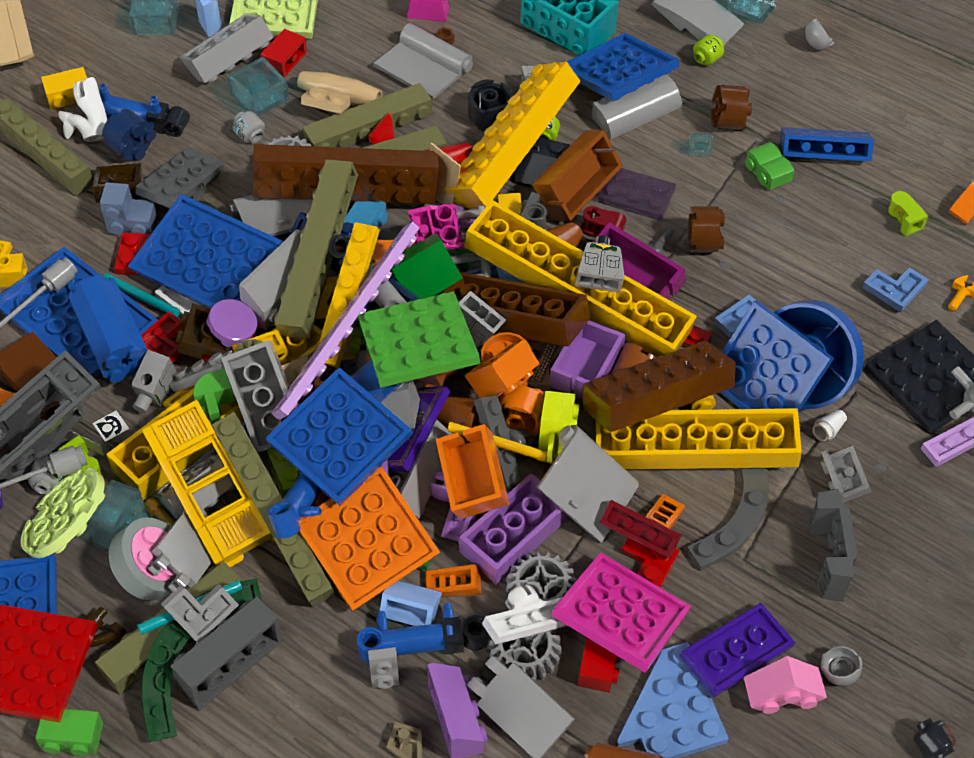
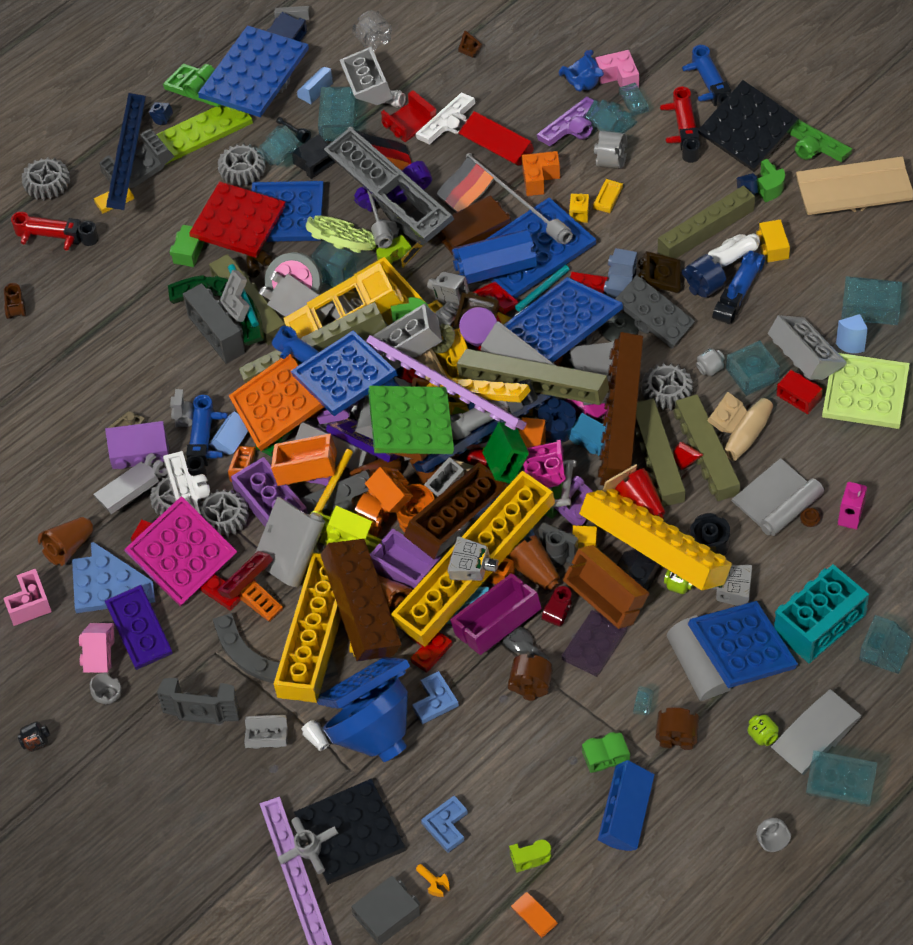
camera: 105 degrees right, 0 degrees up
(110, 426) = (426, 271): sticker -> none

